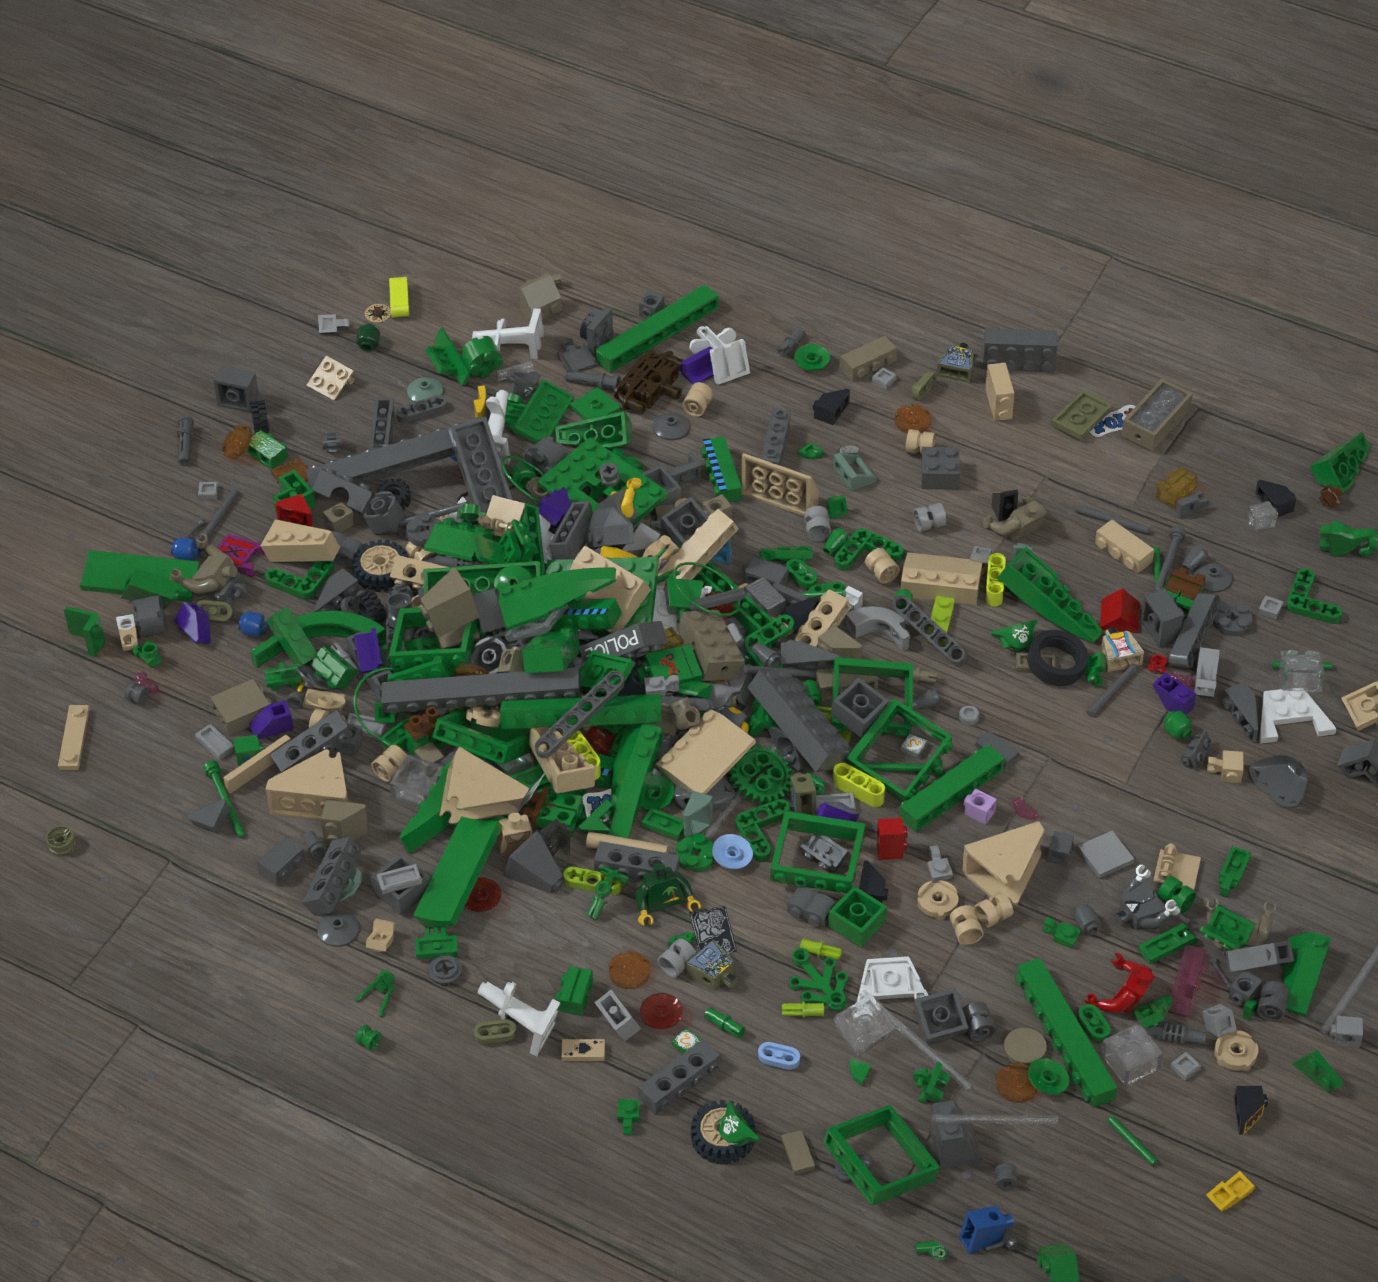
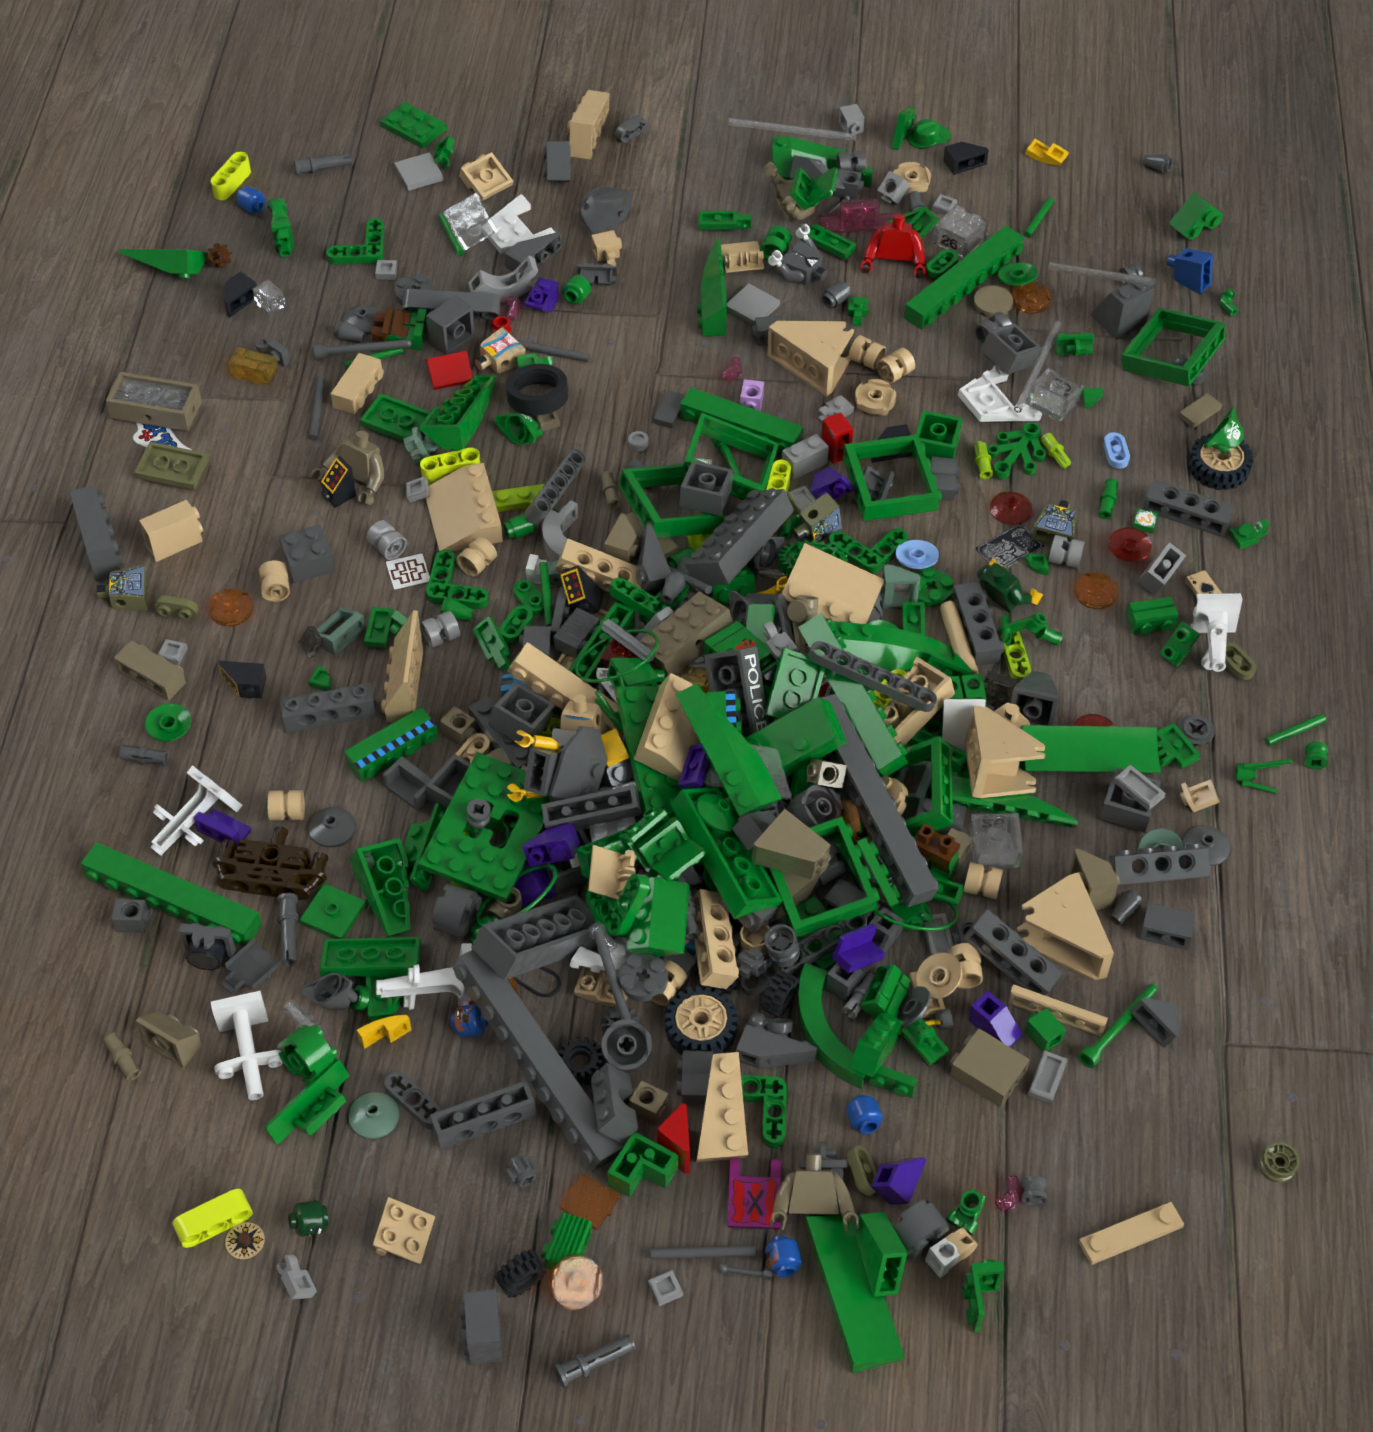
camera: 115 degrees left, 5 degrees up
(404, 1058) = (1294, 730): none -> green bar
(531, 991) = (1179, 644): none -> green hips
(756, 957) = (1011, 508): none -> clear red dish
(836, 488) = (378, 628): none -> green plate
(883, 806) = (806, 456): none -> light grey brick
(898, 530) = (408, 571): none -> white sticker
(1073, 560) = (393, 417): none -> green plate
(1131, 825) = (713, 295): none -> green wedge
(1304, 1099) = (928, 134): none -> green piece

